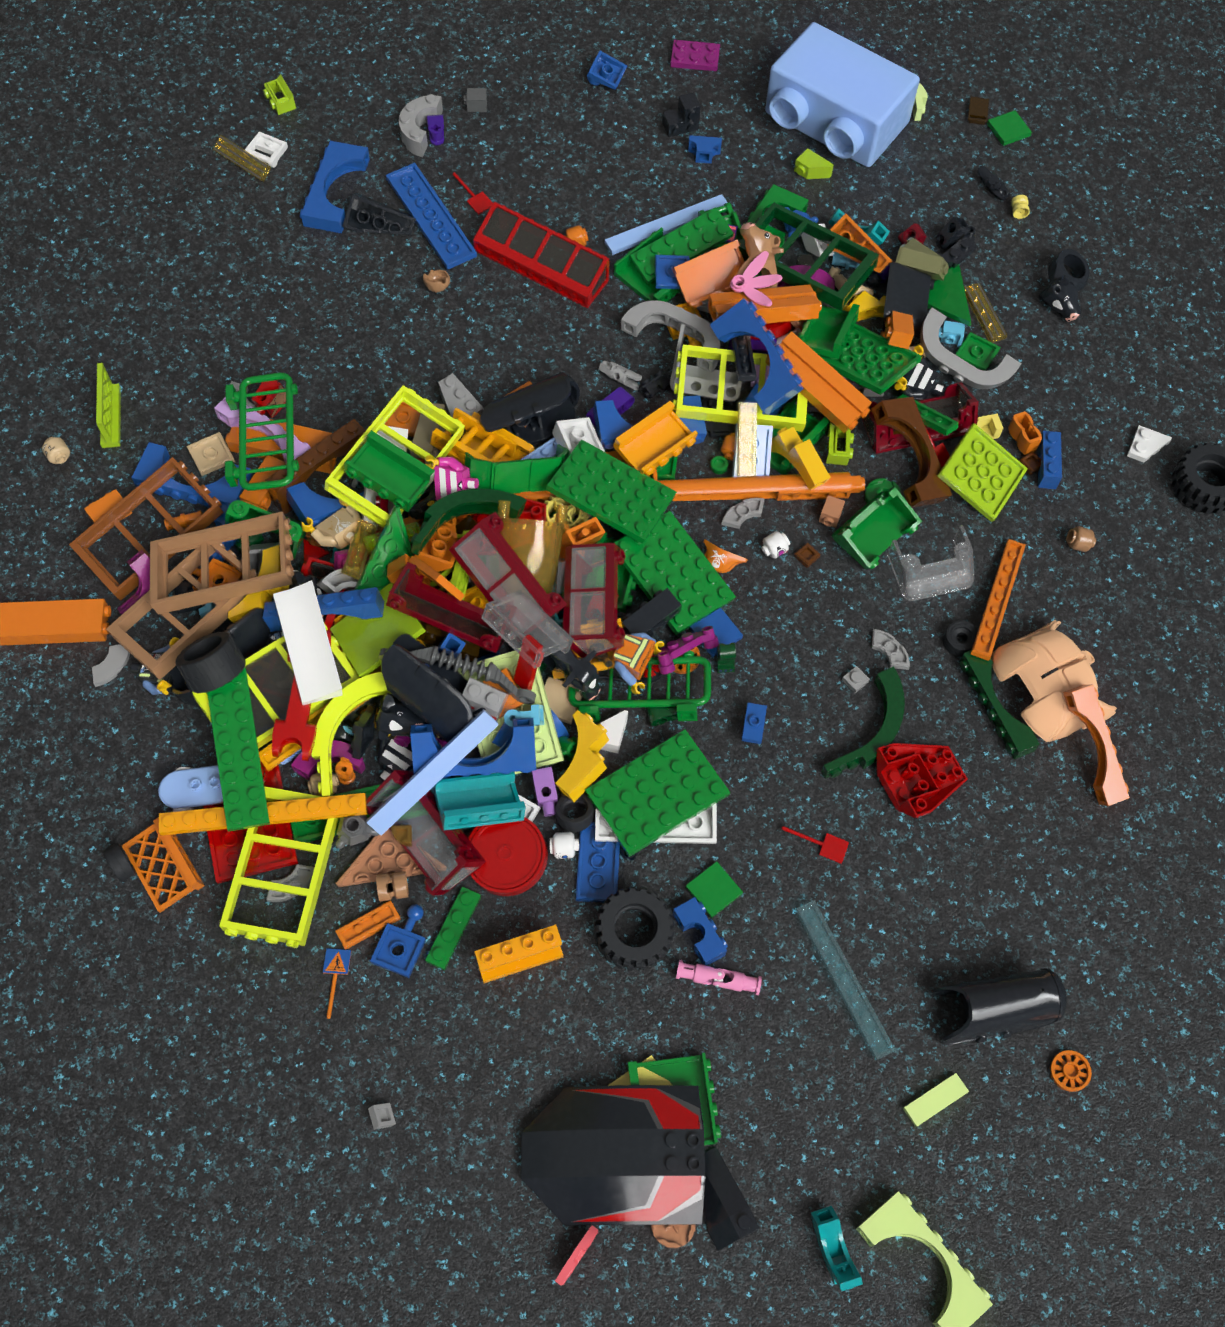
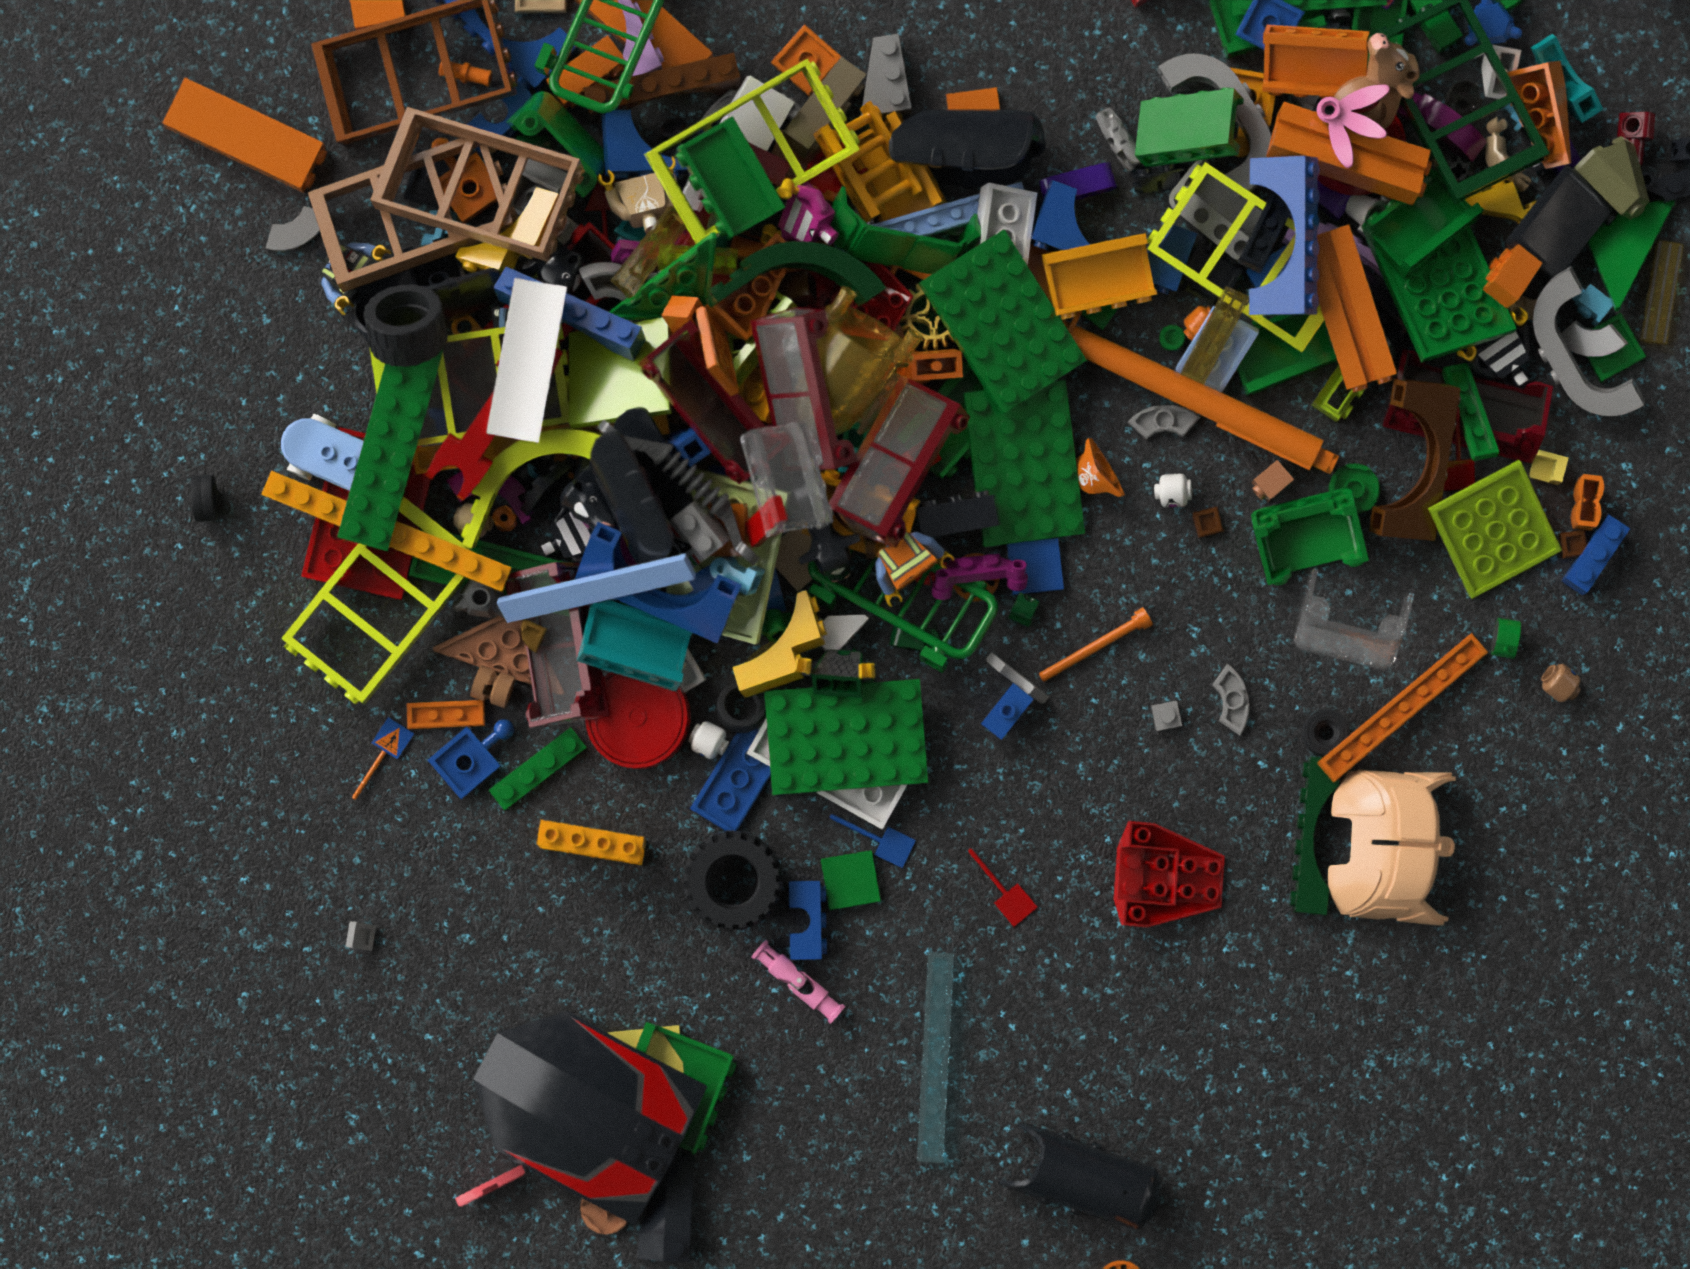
camera: 30 degrees right, 20 degrees up
(141, 565) = (383, 128): magenta arch -> none
(179, 858) = (273, 525): orange fence -> none
(299, 877) = (387, 622): light grey tile -> none
(544, 783) = (723, 654): medium lavender torso -> none
(630, 749) = (838, 672): none -> torso
(660, 340) = (1187, 127): none -> green panel
(729, 853) = (893, 846): none -> blue piece
(738, 700) = (1017, 678): none -> light grey tile
(802, 456) = (1268, 395): yellow arch -> none
(802, 630) = (1139, 621): none -> orange piece
(893, 703) = (1194, 764): dark green arch -> none
(935, 1100) = (955, 1235): yellowish green tile -> none
(969, 347) = (1593, 342): none -> light grey tile
(1031, 528) = (1506, 638): none -> green piece
(1109, 782) = (1377, 1001): arch -> none

